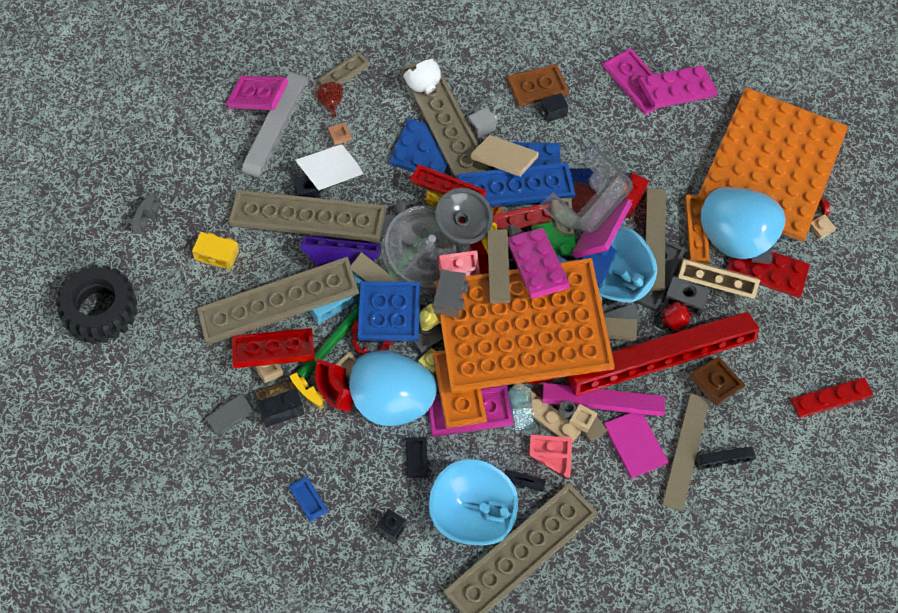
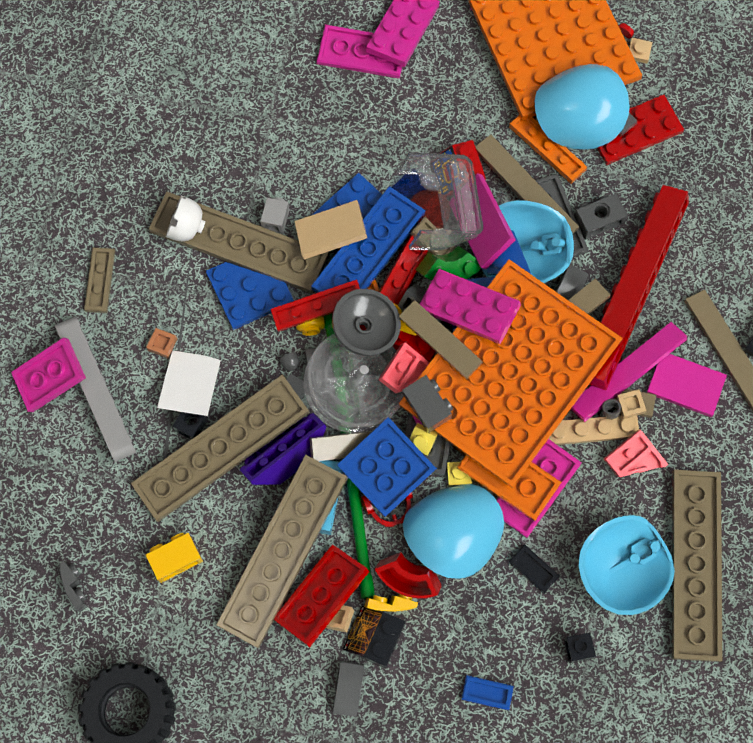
camera: 40 degrees left, 10 degrees up
(330, 96) = (114, 315): clear red piece -> none
(347, 362) = (394, 544): tan tile -> none
(522, 408) = (576, 443): clear light blue slope -> none
(537, 84) = (282, 134): dark orange tile -> none
(538, 483) = (650, 495): black pin -> none
(553, 107) = (320, 143): black brick -> none
(676, 316) = (610, 242): red head -> none
(717, 381) = (696, 268): reddish brown plate -> none
(718, 278) = (610, 176): tan brick -> none

